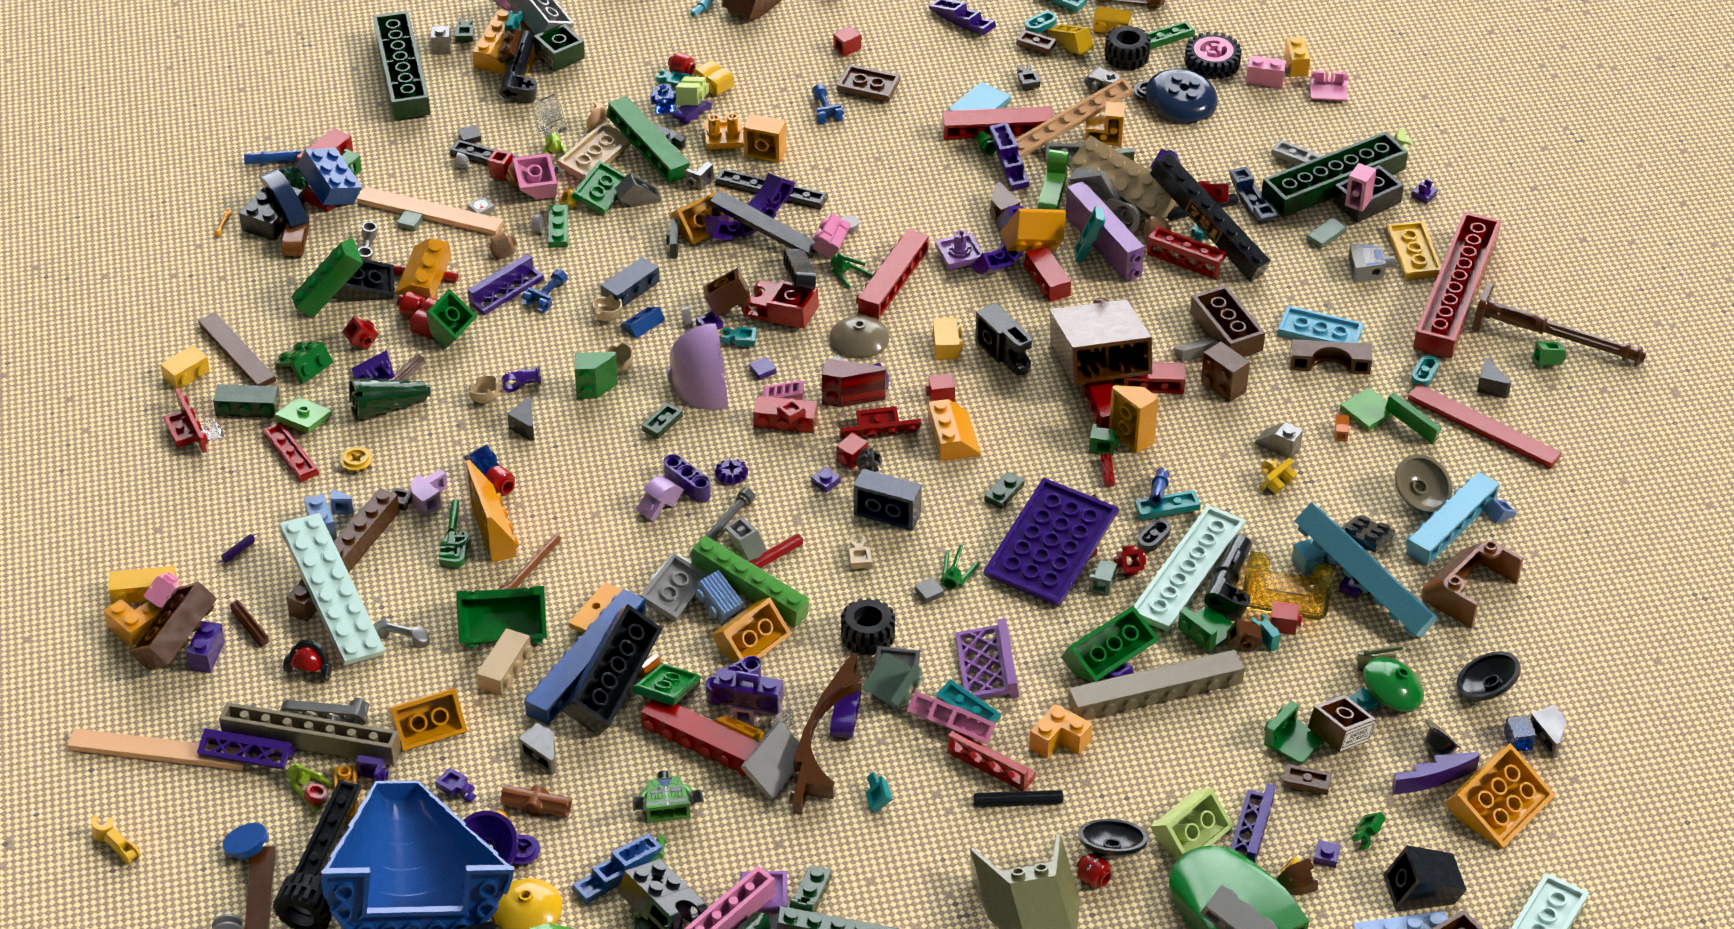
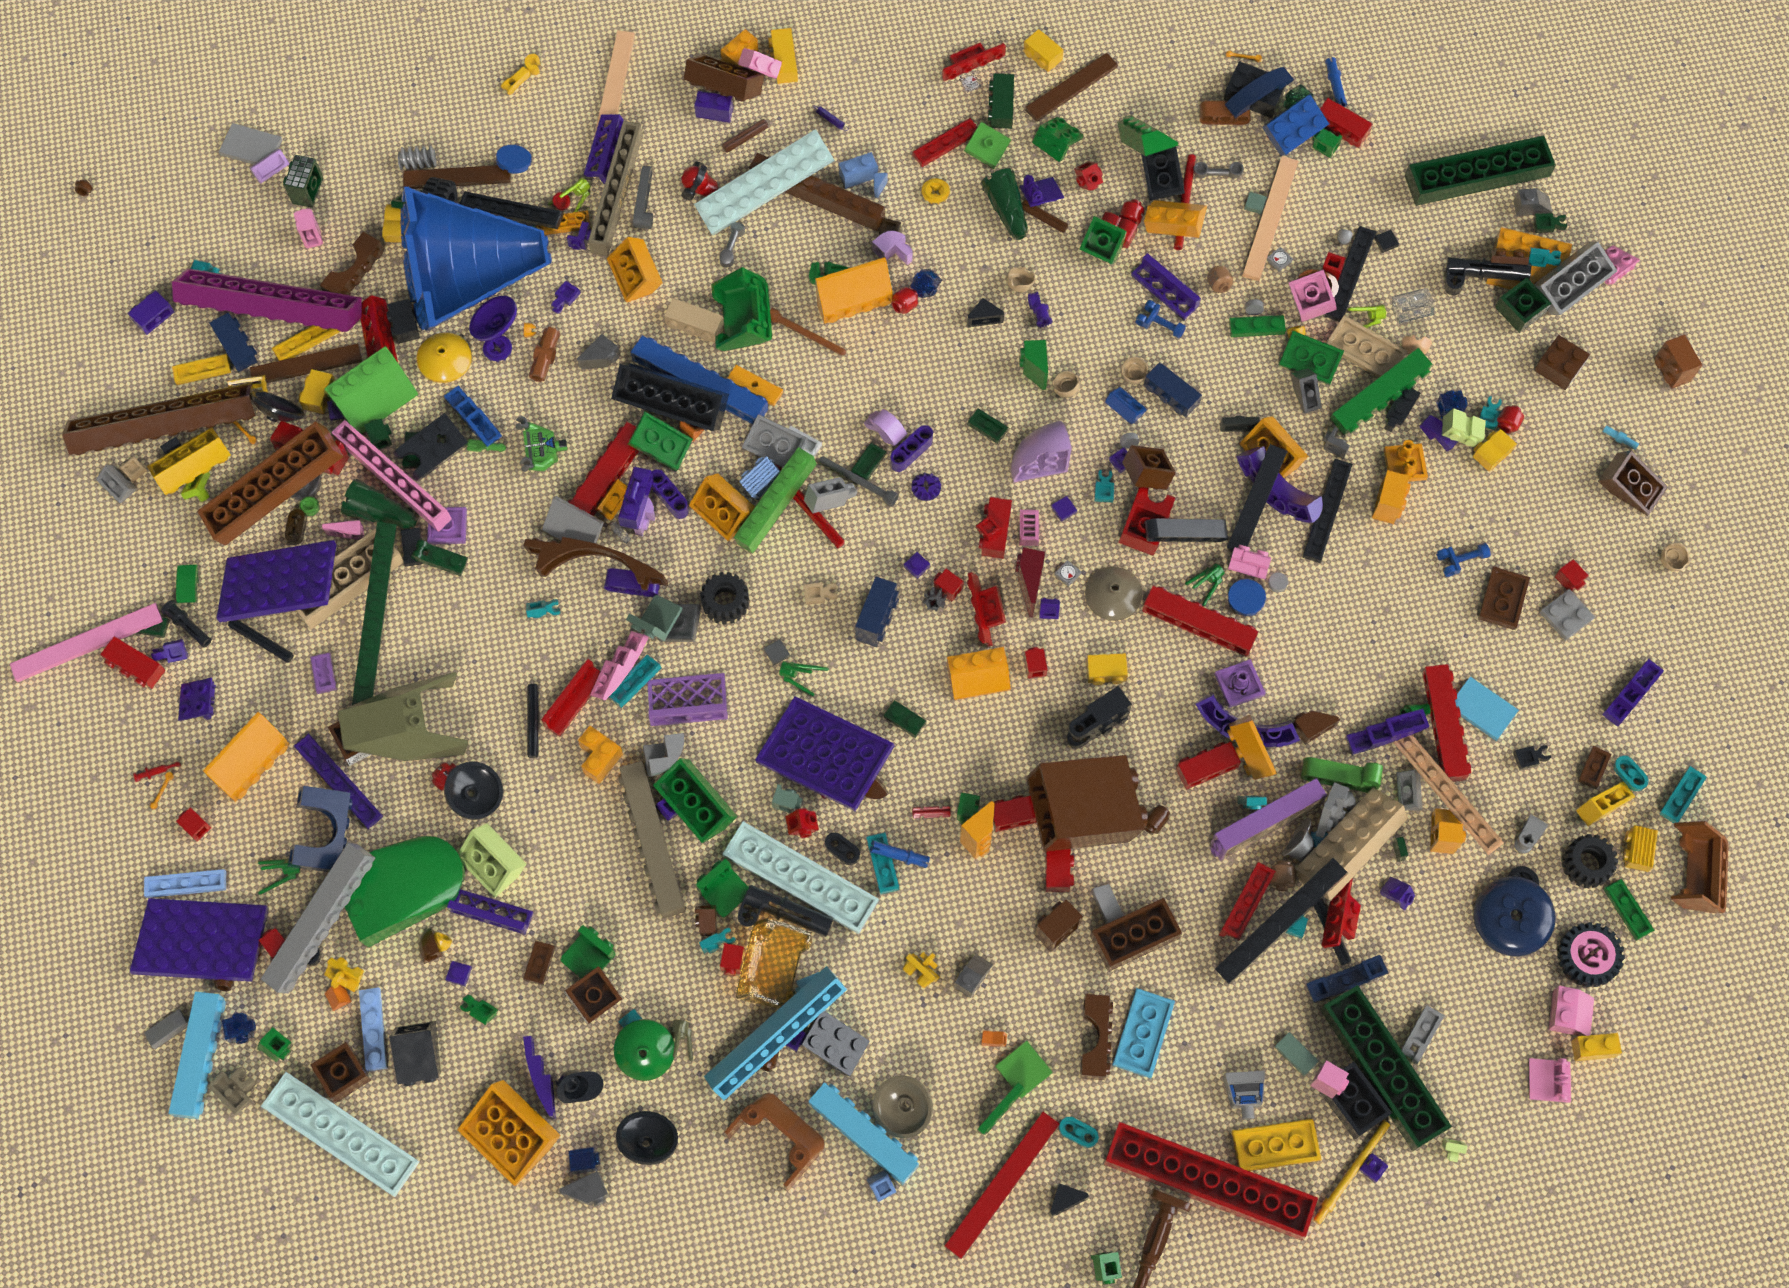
camera: 90 degrees right, 25 degrees up
(622, 30) = (1562, 362): none -> reddish brown brick
(697, 516) = (869, 461): none -> dark green tile
(865, 245) = (1246, 597): none -> blue tile
(884, 49) = (1567, 614): none -> light grey plate
(1063, 669) = (664, 755): none -> light grey brick
(1432, 205) = (1329, 1203): none -> yellow bar

